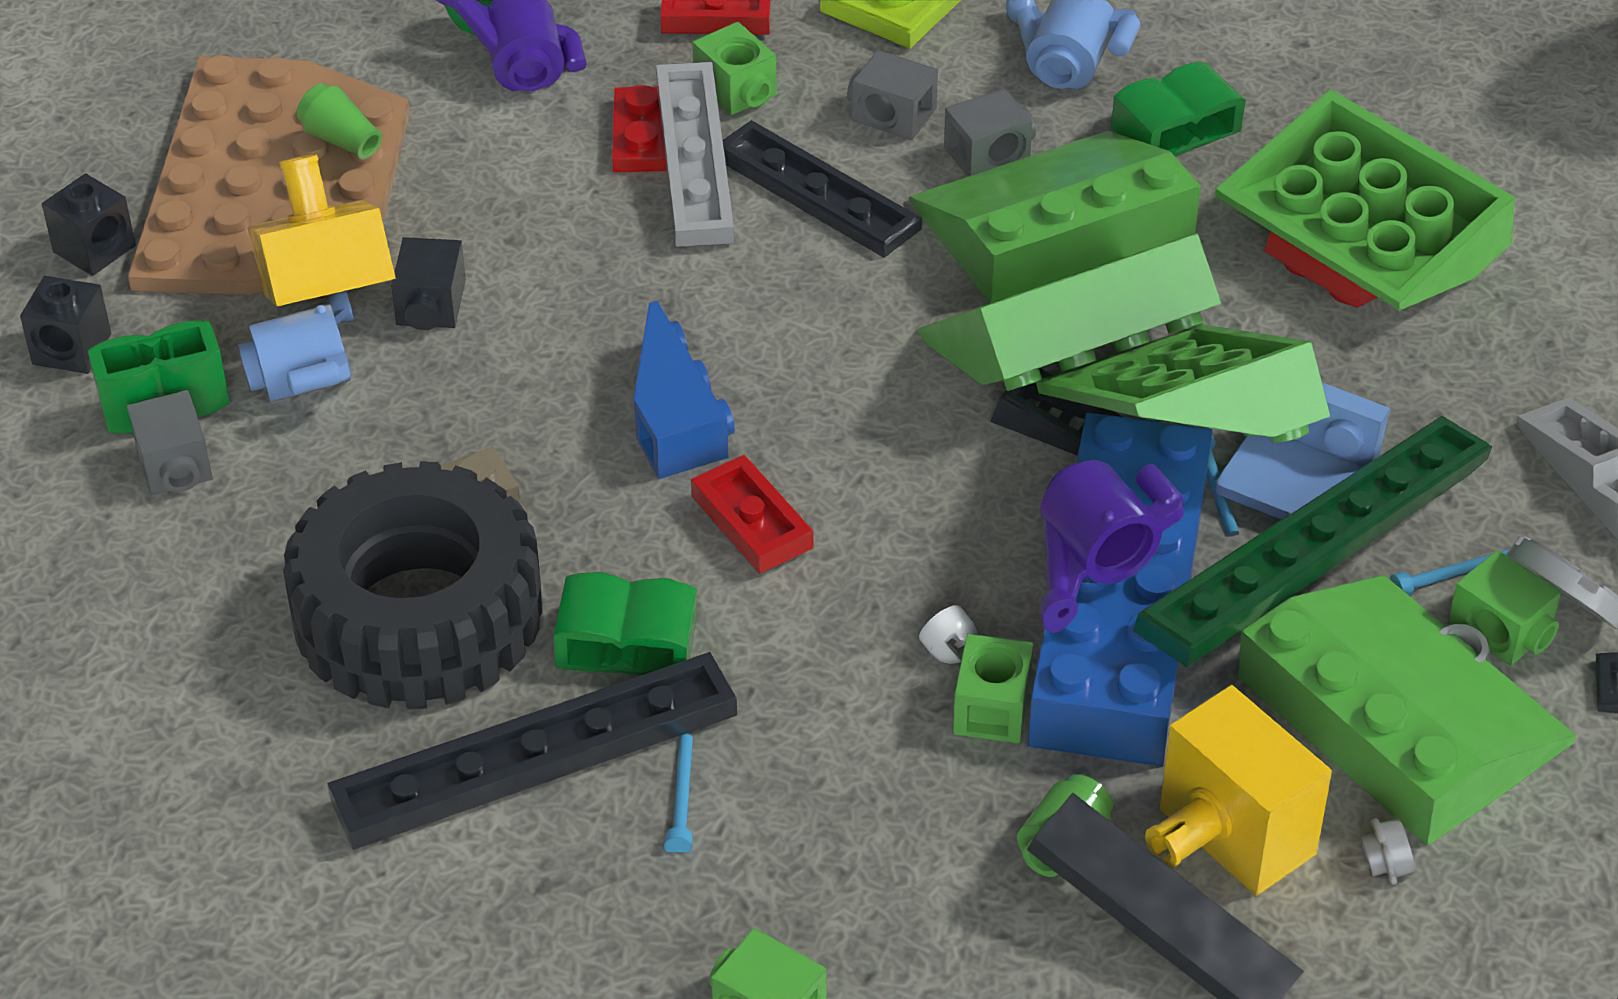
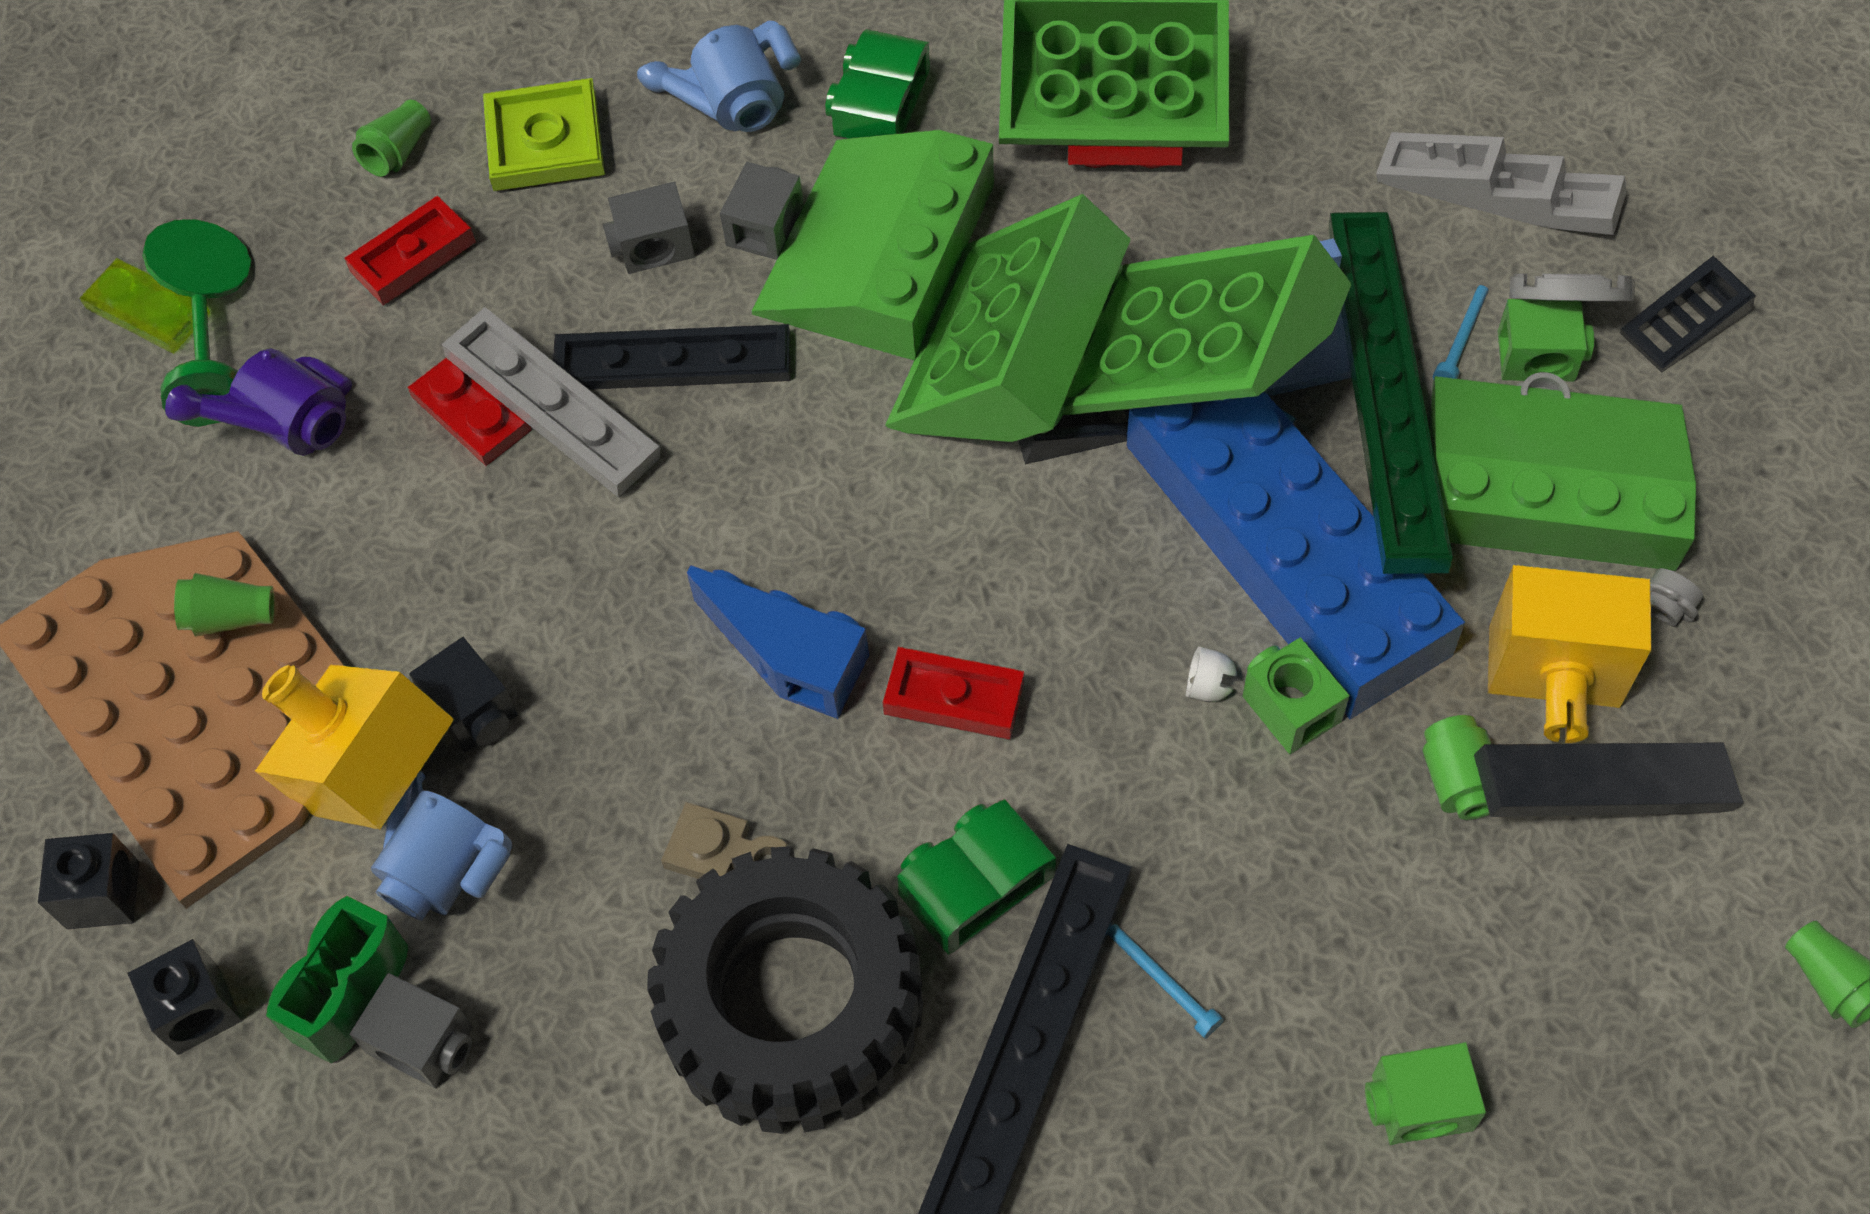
camera: 40 degrees left, 15 degrees up
(741, 67) = (501, 286): bright green brick -> none
(1099, 531) = (1284, 509): dark purple piece -> none

